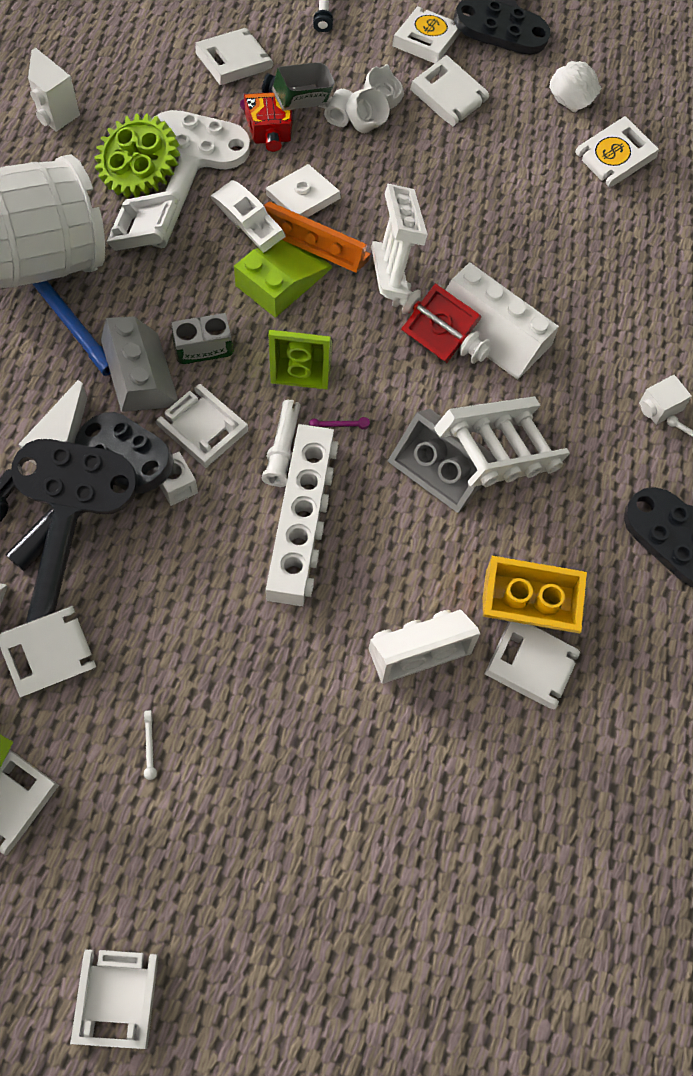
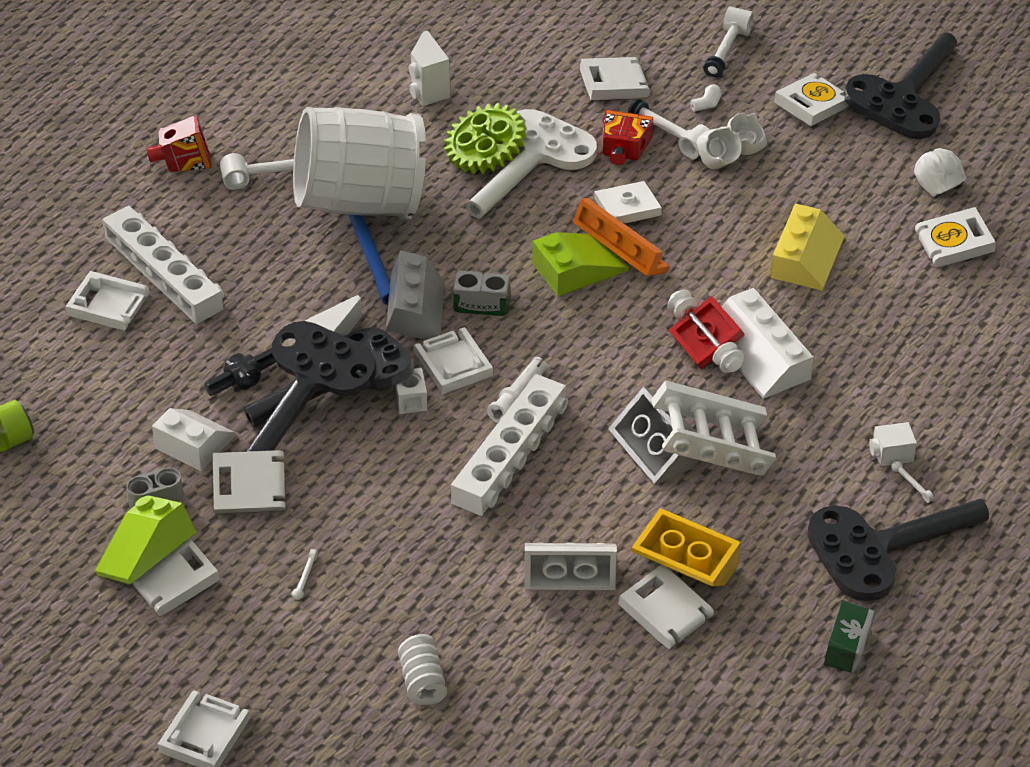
camera: 25 degrees right, 20 degrees down
(151, 220) = (468, 189): white container -> none
(248, 215) = (565, 206): white slope -> none
(300, 359) = (560, 323): lime slope -> none
(303, 75) = (653, 102): light grey piece -> none
(323, 836) = (422, 670): none -> white piece
(333, 54) = (709, 100): none -> white arm
(362, 423) = (599, 395): magenta hinge -> none
(402, 232) = (689, 236): white fence -> none
(453, 94) = (814, 152): white container -> none
(491, 200) = (806, 248): none -> light yellow slope

